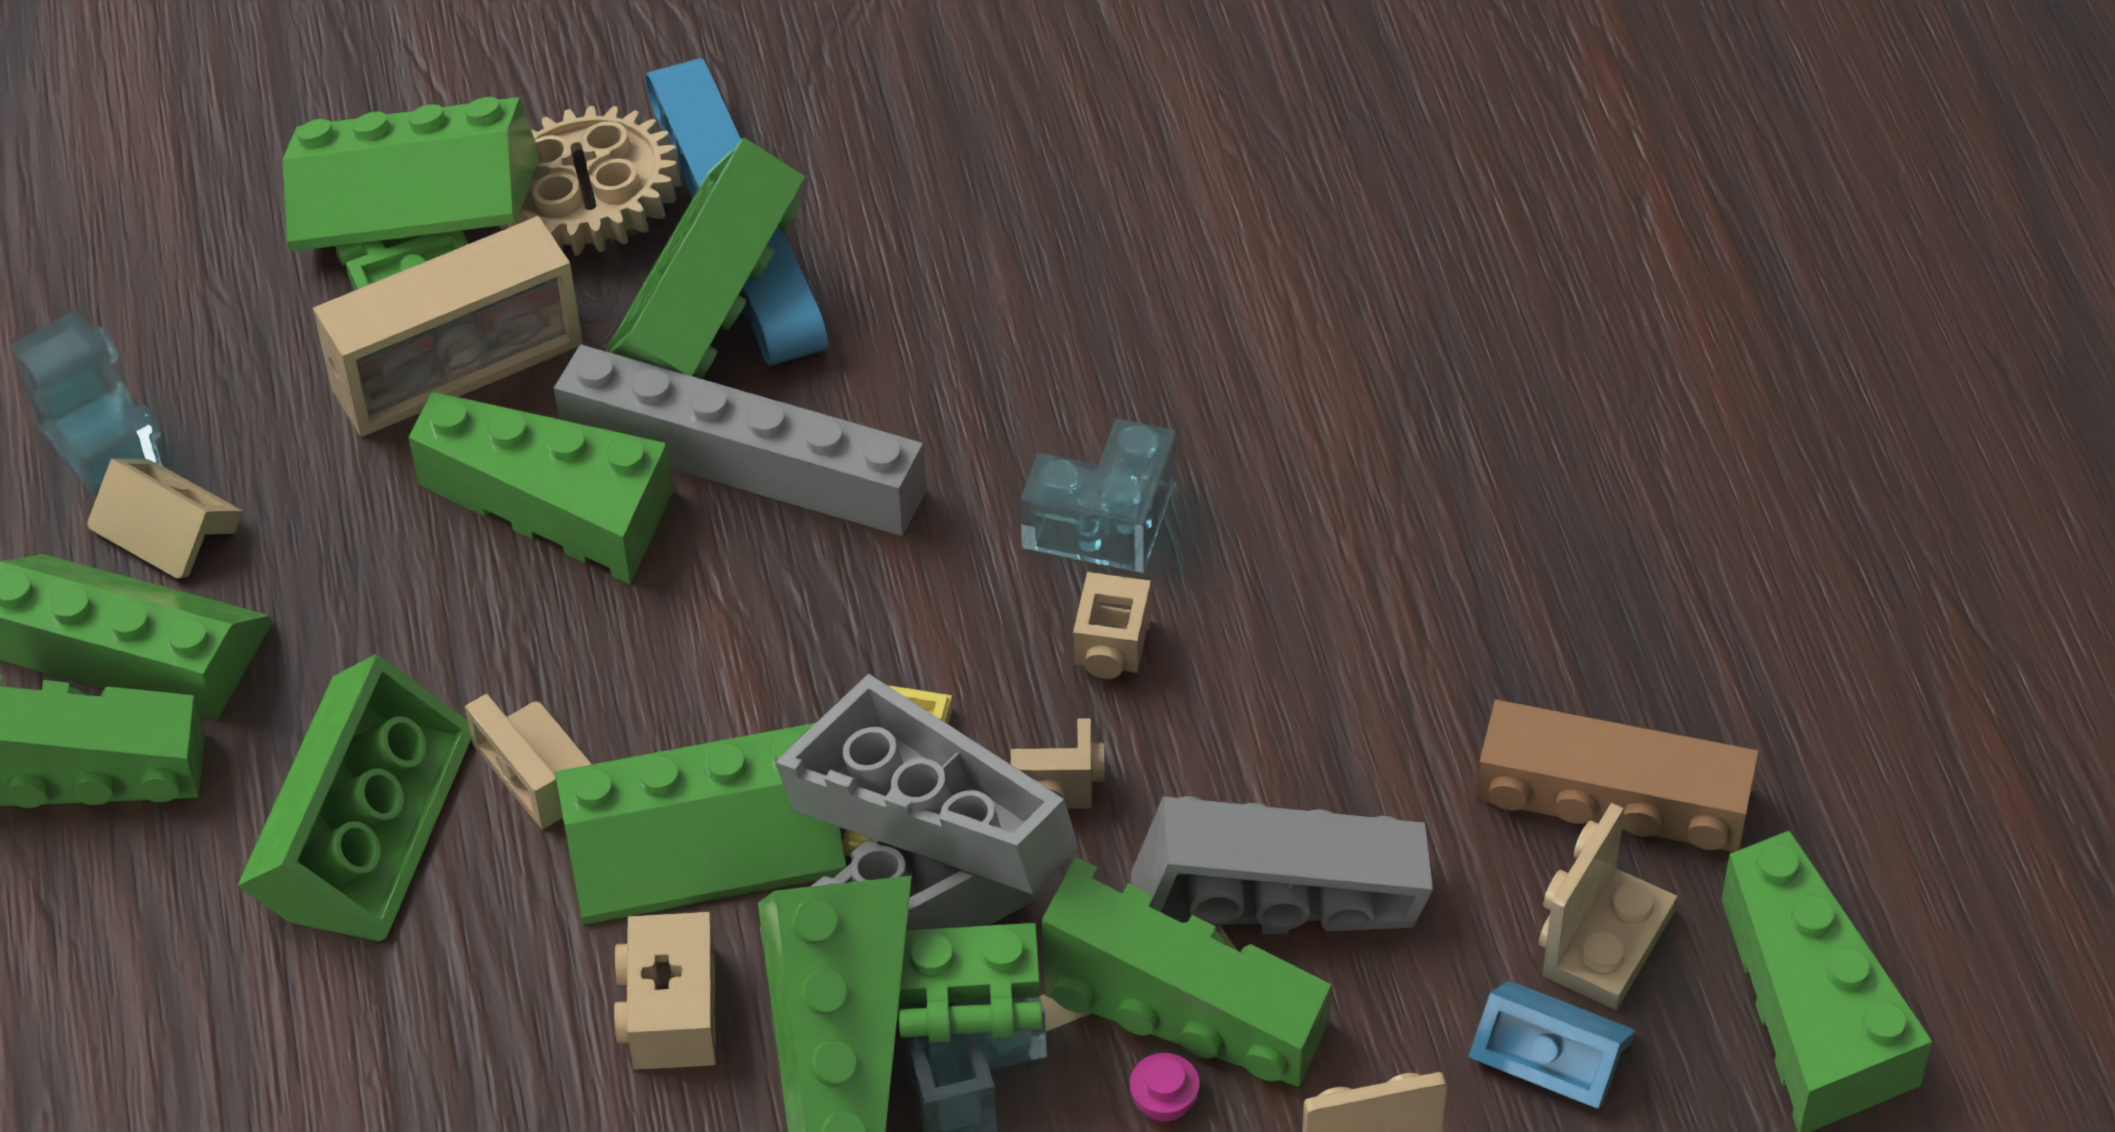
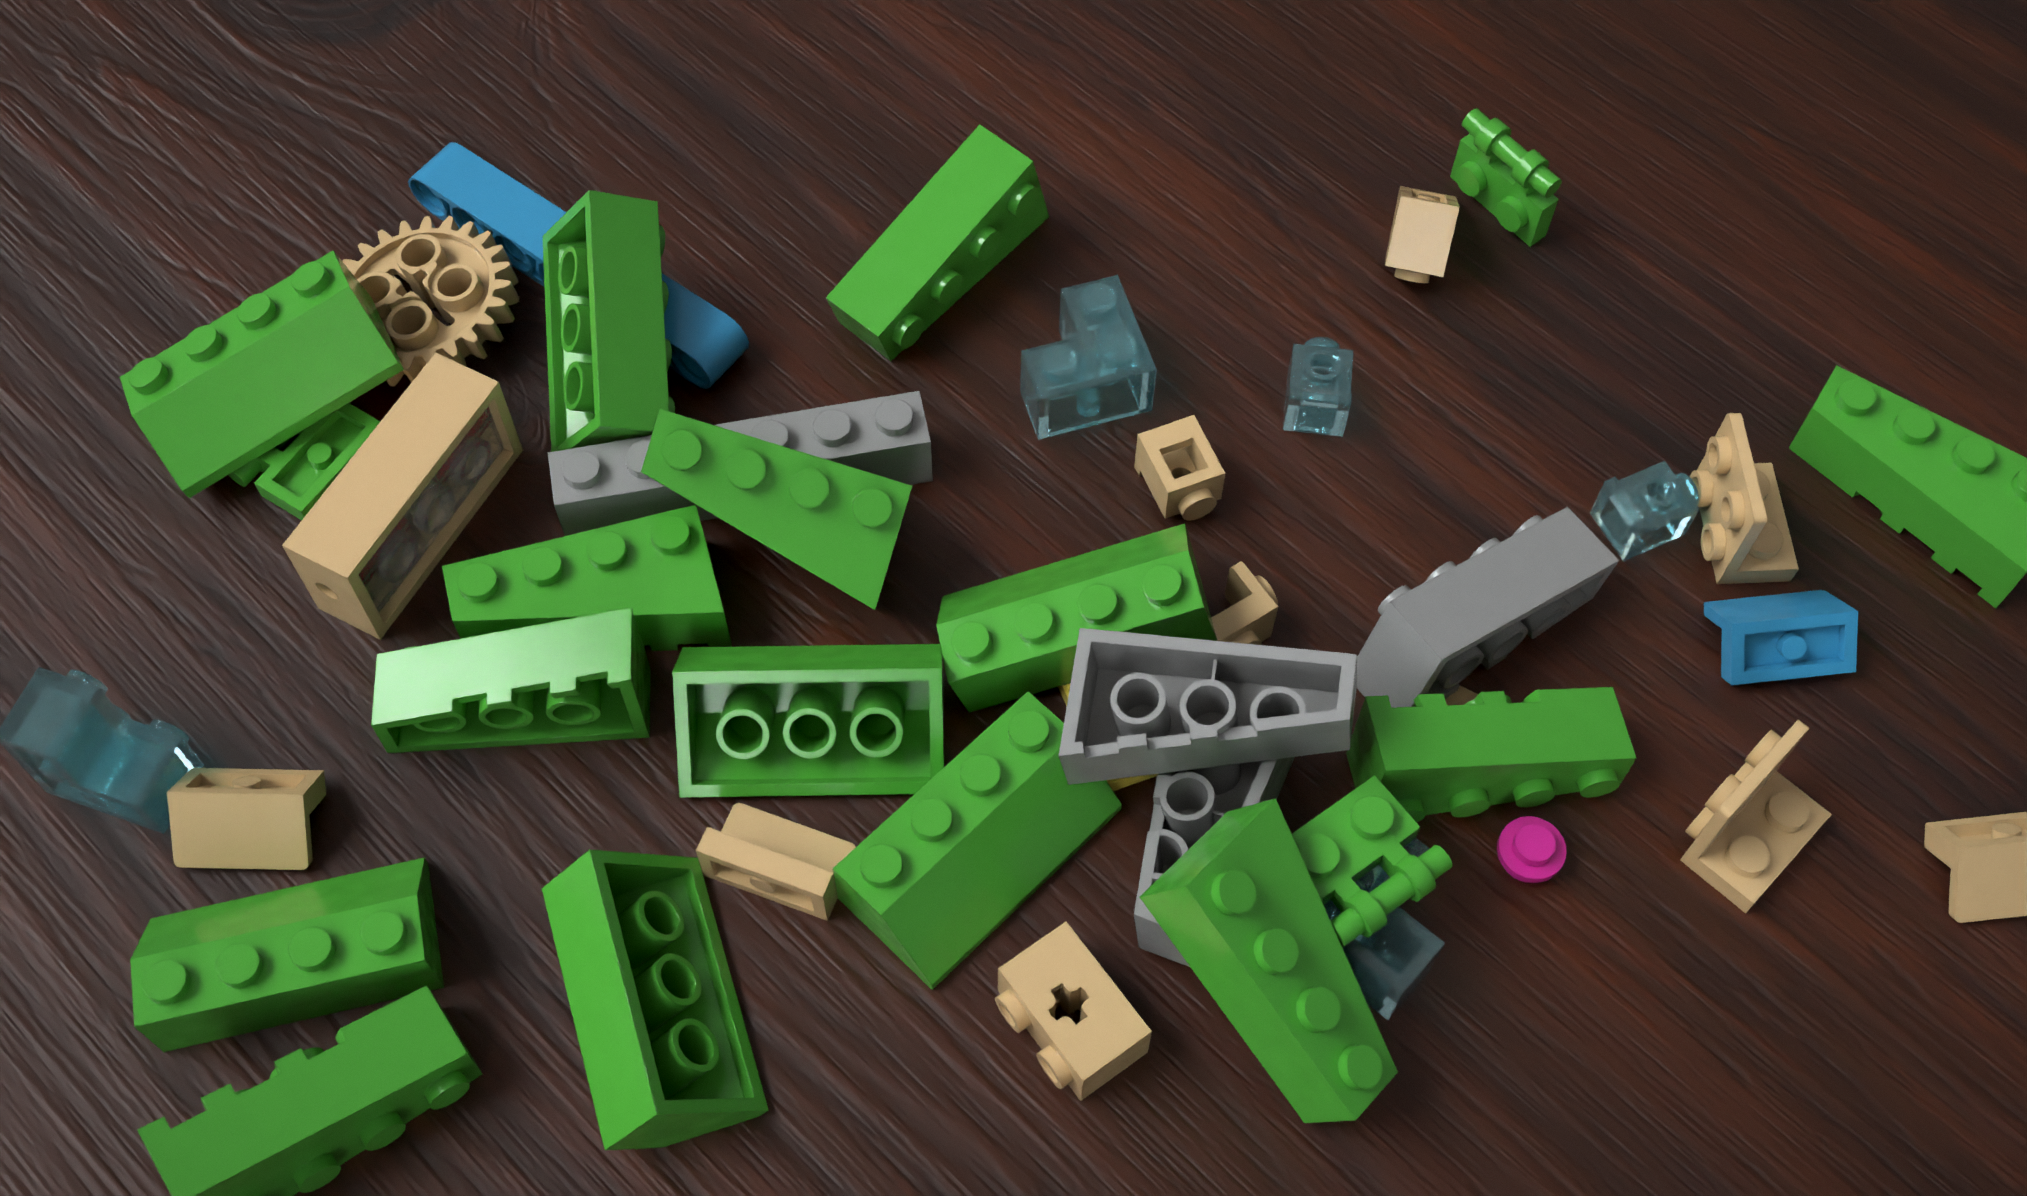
camera: 35 degrees left, 10 degrees up
(431, 520) = (517, 687): none -> wedge
(636, 659) = (808, 719): none -> bright green slope
(744, 485) = (798, 504): none -> bright green wedge
(976, 691) = (1026, 626): none -> bright green slope
(1052, 337) = (941, 244): none -> bright green wedge
(1299, 622) = (1318, 377): none -> clear light blue brick
(1512, 533) = (1421, 234): none -> tan slope
(1514, 871) = (1645, 509): none -> clear light blue brick
(1583, 764) = (1653, 389): medium nougat brick -> none
(1628, 523) = (1506, 177): none -> bright green plate

